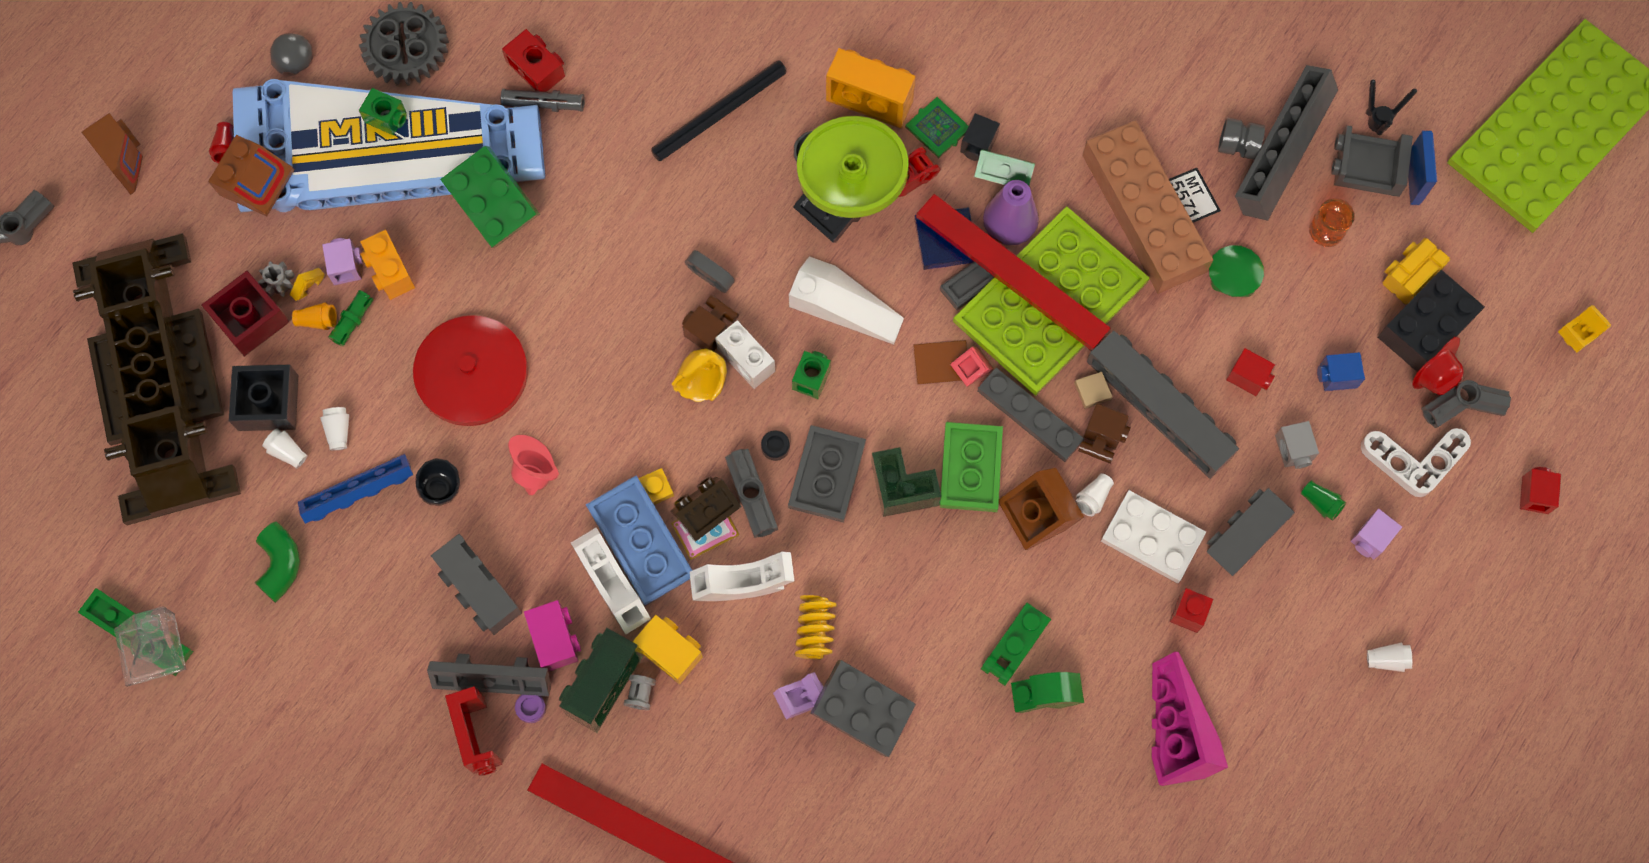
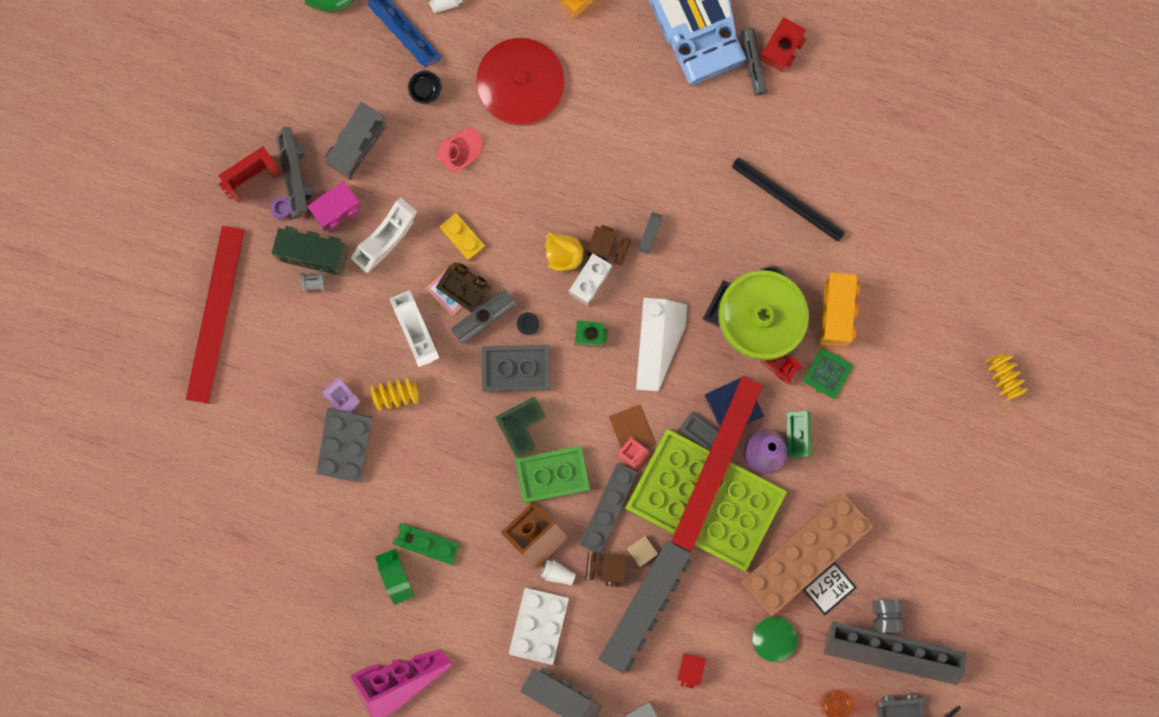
camera: 70 degrees right, 10 degrees up
(490, 196) = (655, 50): green brick -> none
(640, 540) = (424, 247): medium blue tile -> none
(668, 648) = (348, 292): yellow brick -> none
(979, 135) = (825, 408): black brick -> none
(1191, 610) = (486, 667): red brick -> none

